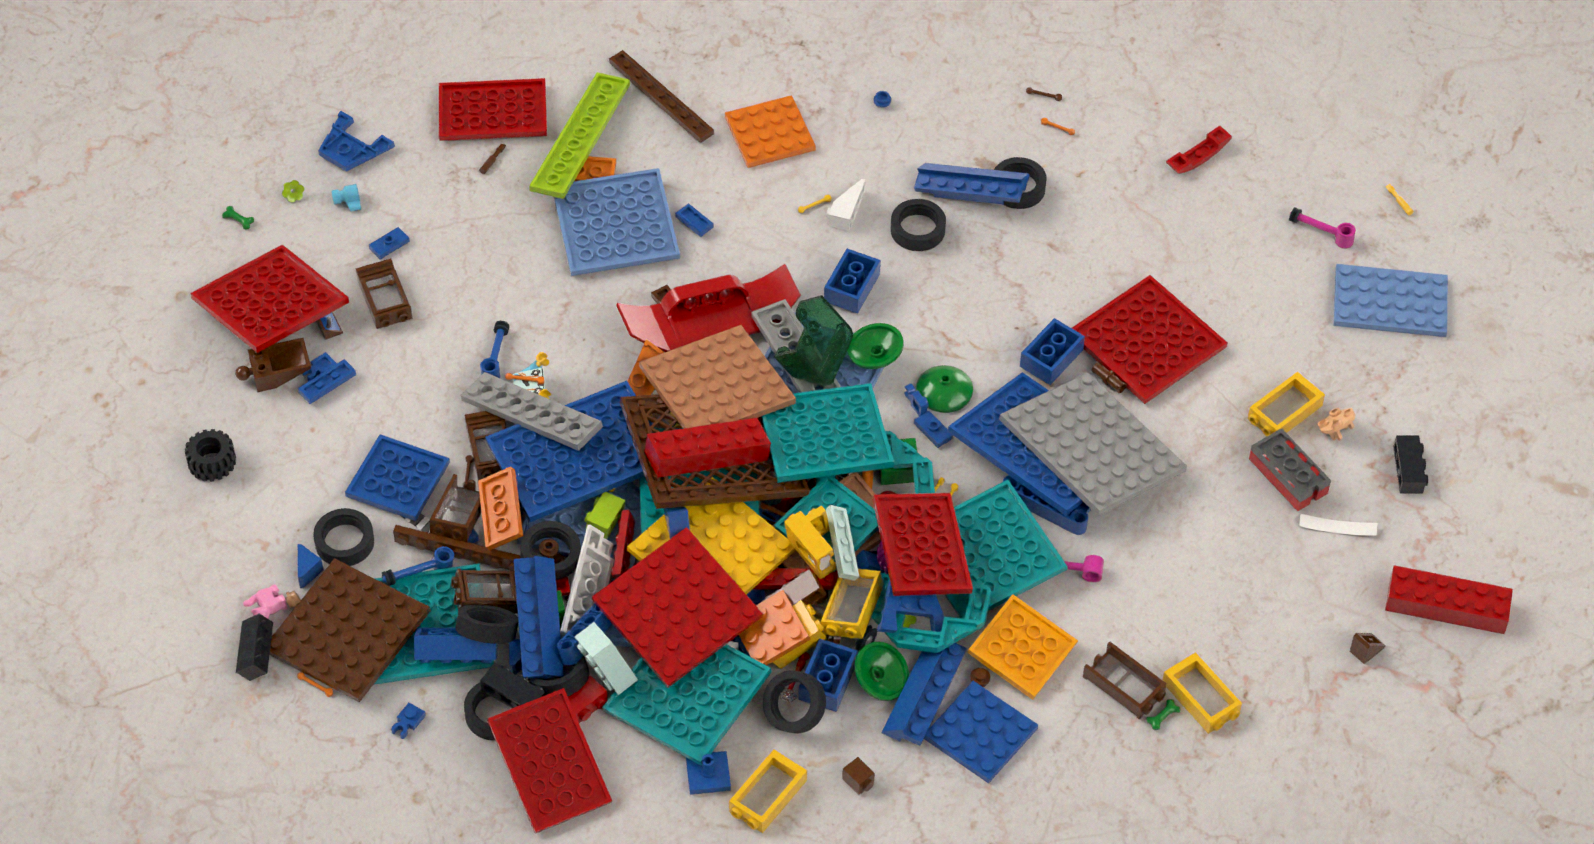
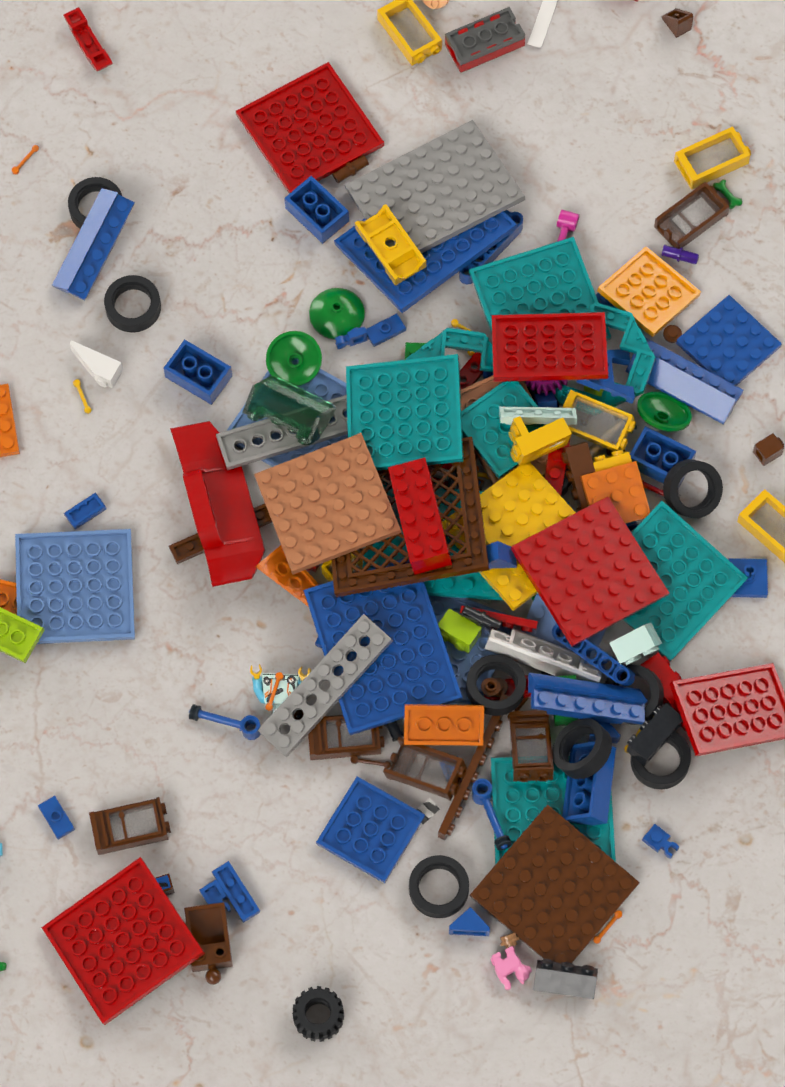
camera: 80 degrees left, 15 degrees up
(615, 524) = (480, 618): none -> black pin
(1002, 415) = (399, 260): none -> yellow piece
(1076, 674) = (680, 254): none -> dark purple axle

